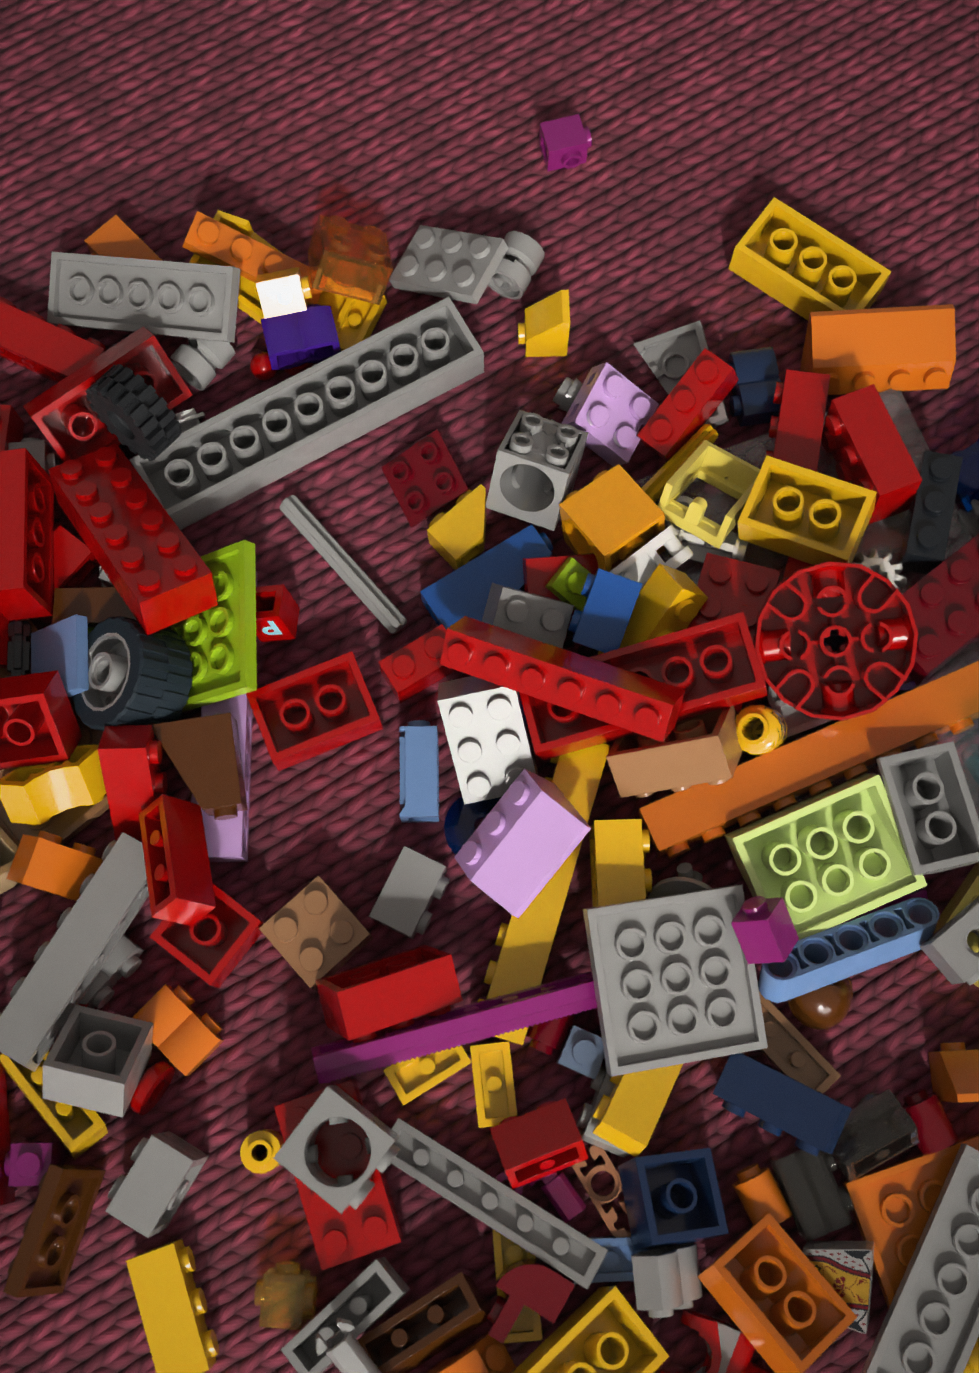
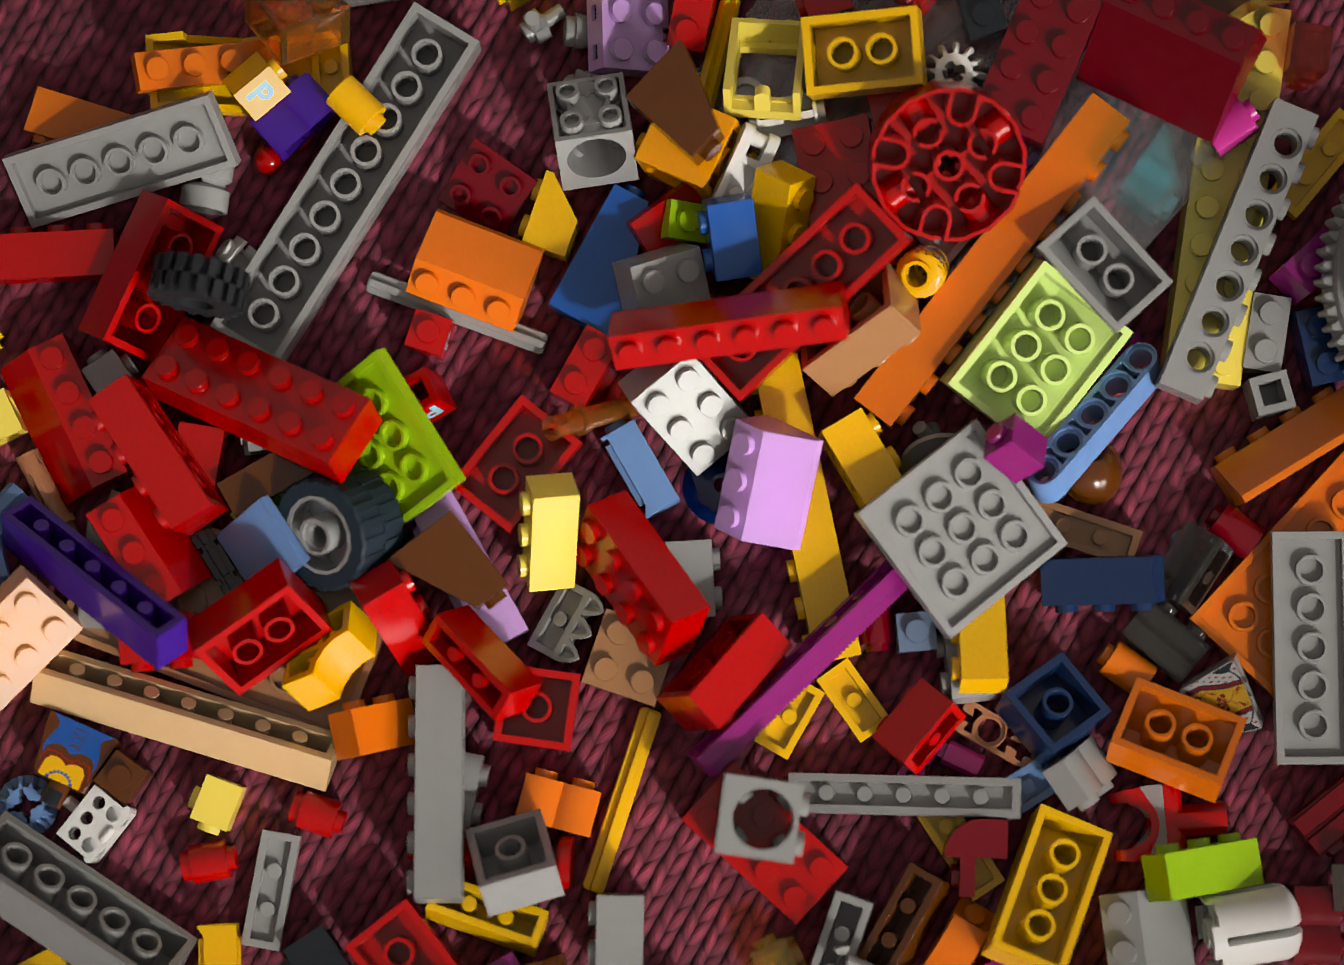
camera: 30 degrees left, 10 degrees up
(236, 1058) = (621, 800): none -> yellow axle
(271, 1140) = (685, 849): yellow brick -> none
(279, 869) = (565, 622): none -> light grey plate
(305, 779) = (548, 531): none -> light yellow brick
(308, 566) = (429, 334): none -> red brick
(352, 346) = (357, 106): none -> yellow brick
(360, 865) = (640, 578): none -> red brick
(374, 533) = (475, 270): none -> orange slope
(392, 700) = (582, 419): none -> clear orange pin
(539, 374) = (537, 25): none -> light grey piece
(620, 475) = (678, 105): none -> reddish brown slope

